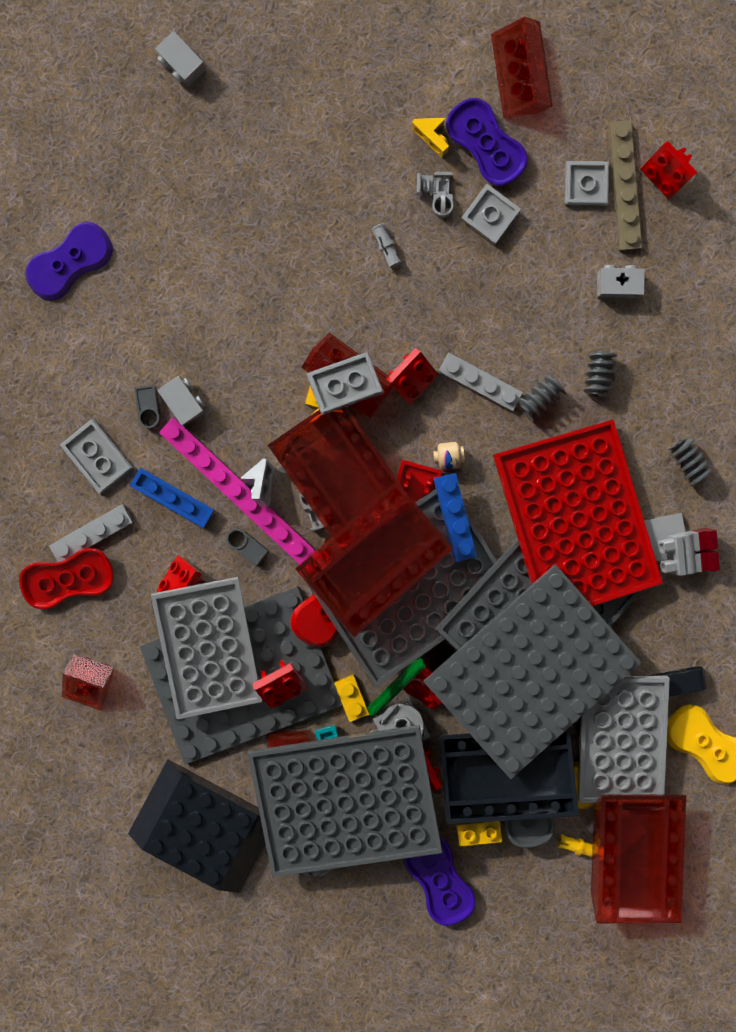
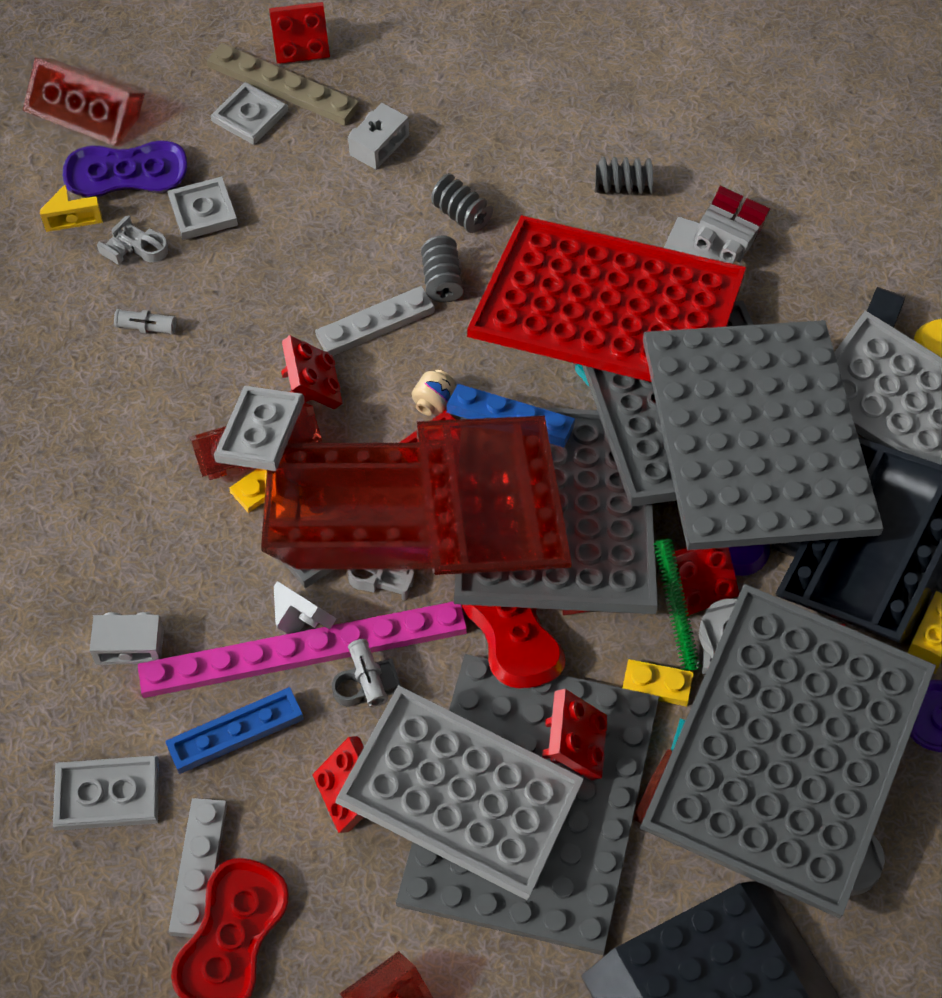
camera: 55 degrees left, 30 degrees down
(147, 400) = (91, 684): dark grey piece -> none
(246, 547) = (373, 690): none -> light grey pin

